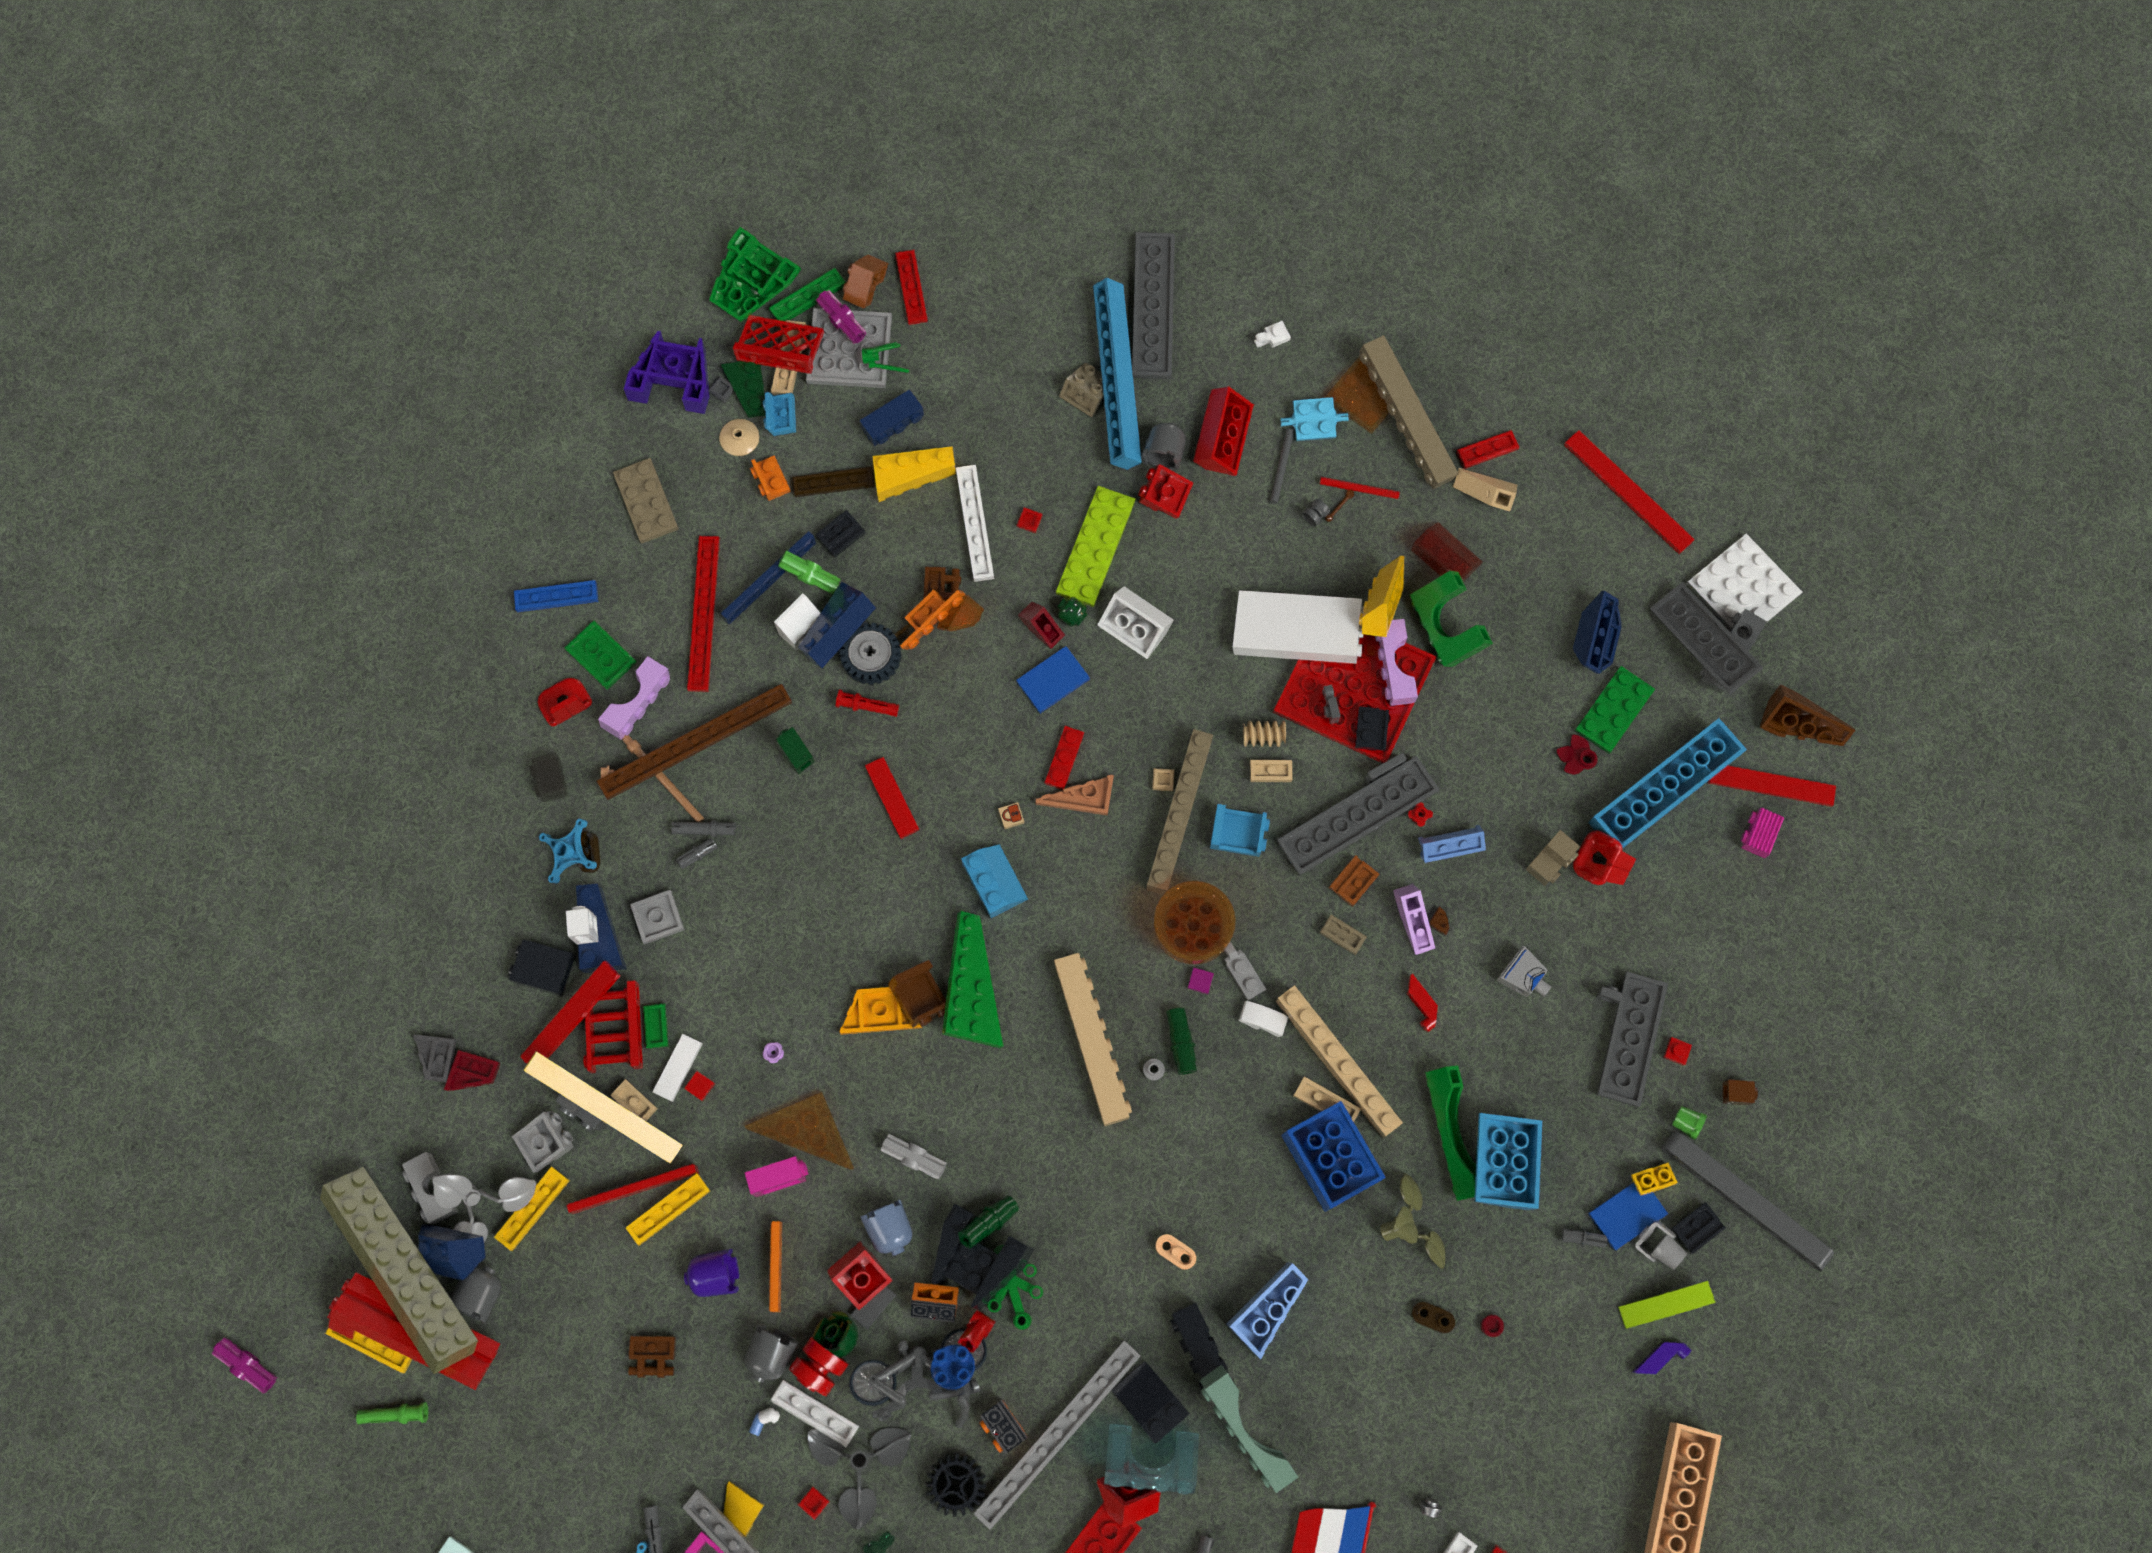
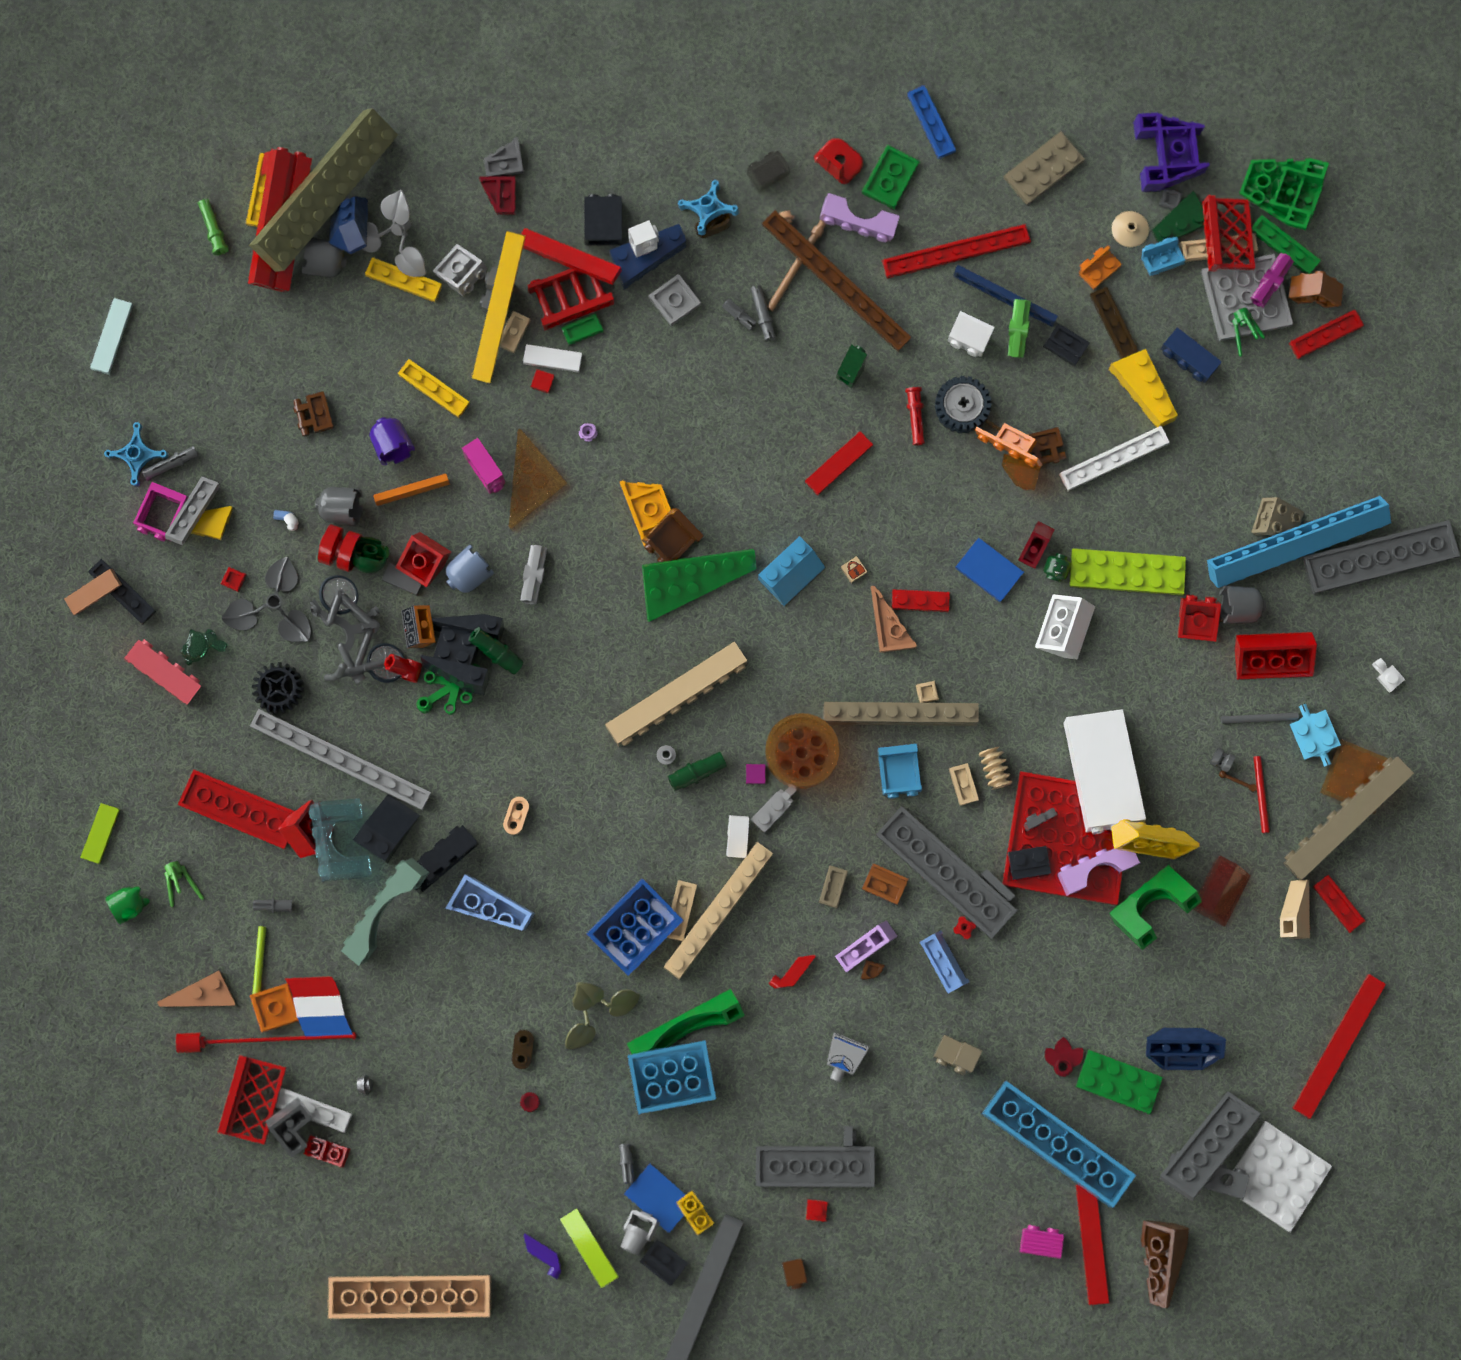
camera: 70 degrees right, 5 degrees up
(244, 1365) = (218, 100): magenta piece -> none
(419, 1173) = (406, 180): light grey arch -> none
(633, 1188) = (441, 353): red tile -> none
(814, 1413) = (303, 558): white tile -> none
(836, 624) = (977, 365): dark blue wedge -> none
(952, 1367) = (368, 655): blue dish -> none
(1003, 1427) = (333, 713): brick -> none
(1029, 520) = (1133, 506): red tile -> none
(1617, 865) = (969, 1114): red piece -> none
(1689, 1122) = (754, 1233): bright green piece -> none

